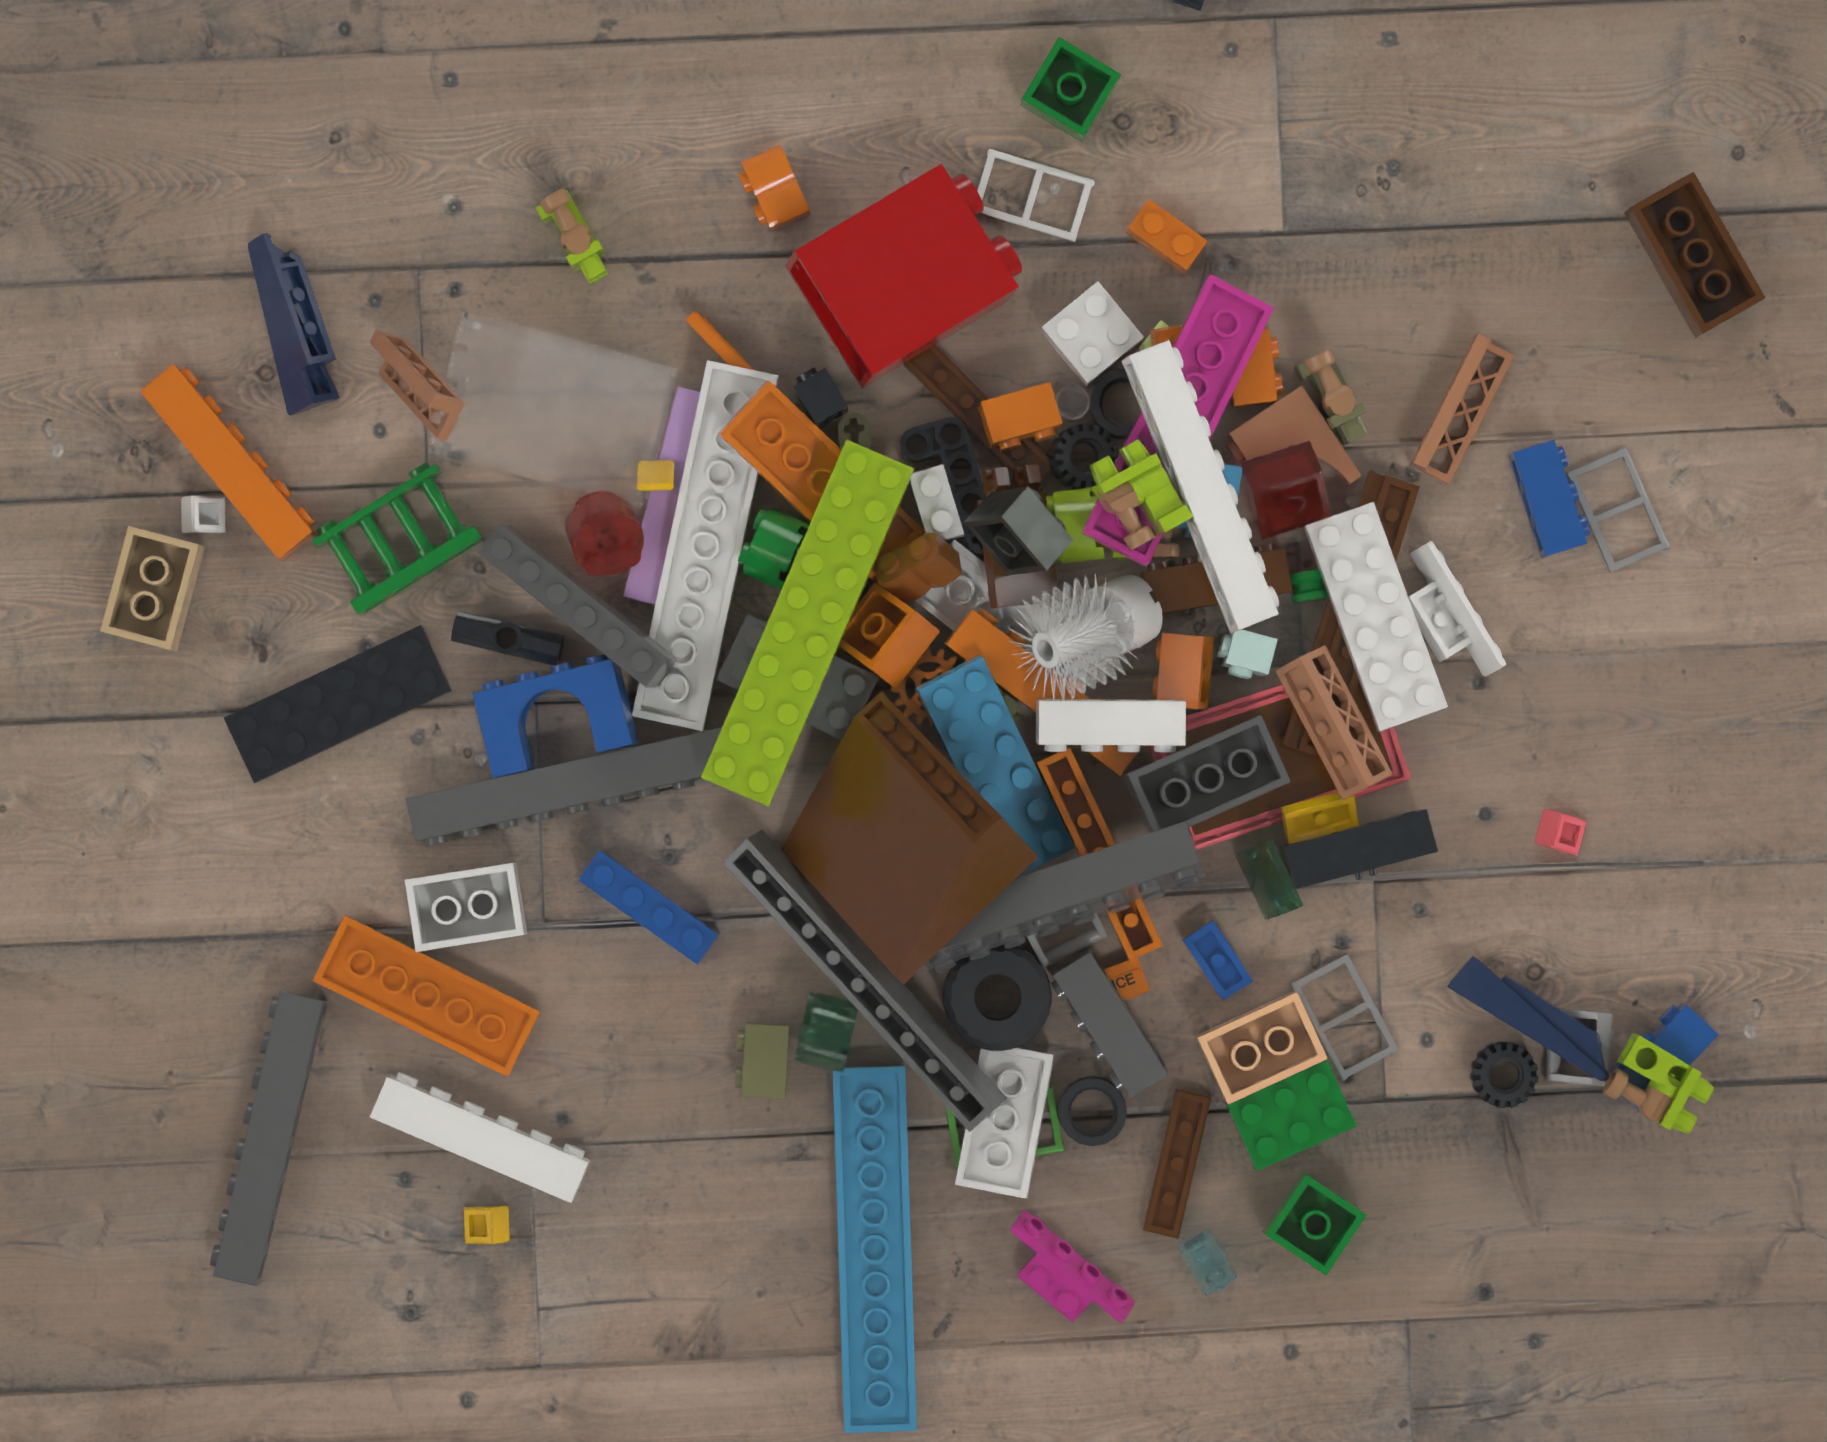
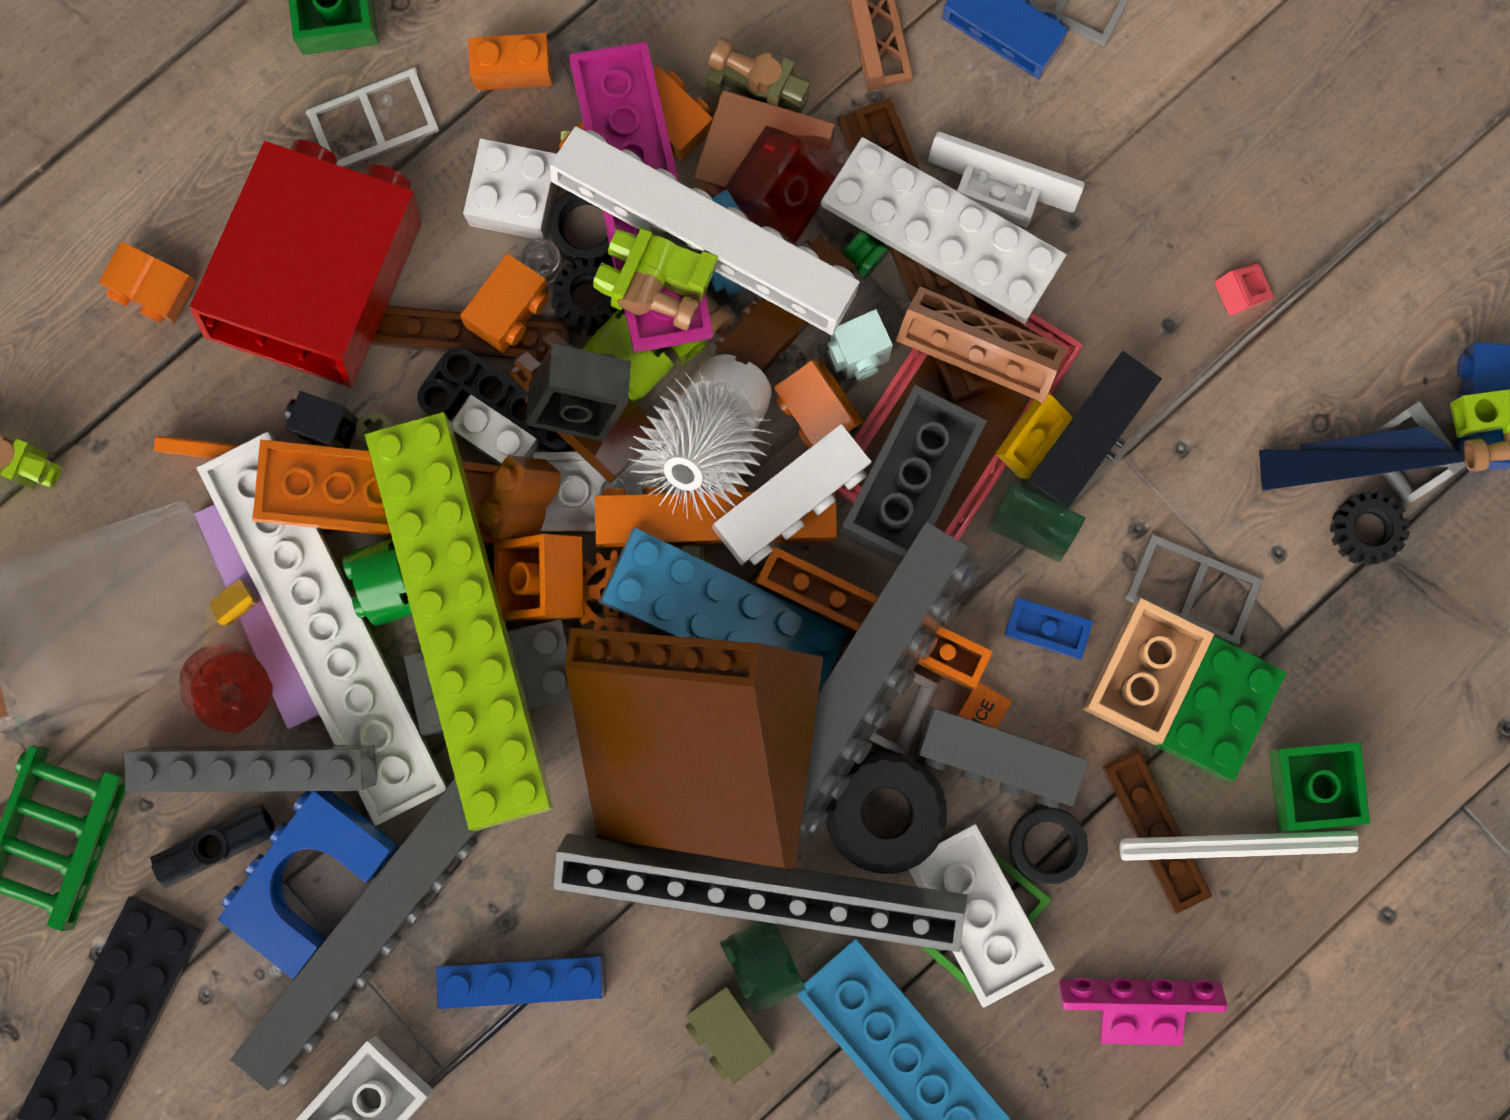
camera: 30 degrees left, 5 degrees down
(1207, 1262) = (1256, 896): clear light blue bracket -> none
(1225, 1218) = (1238, 845): none -> white axle

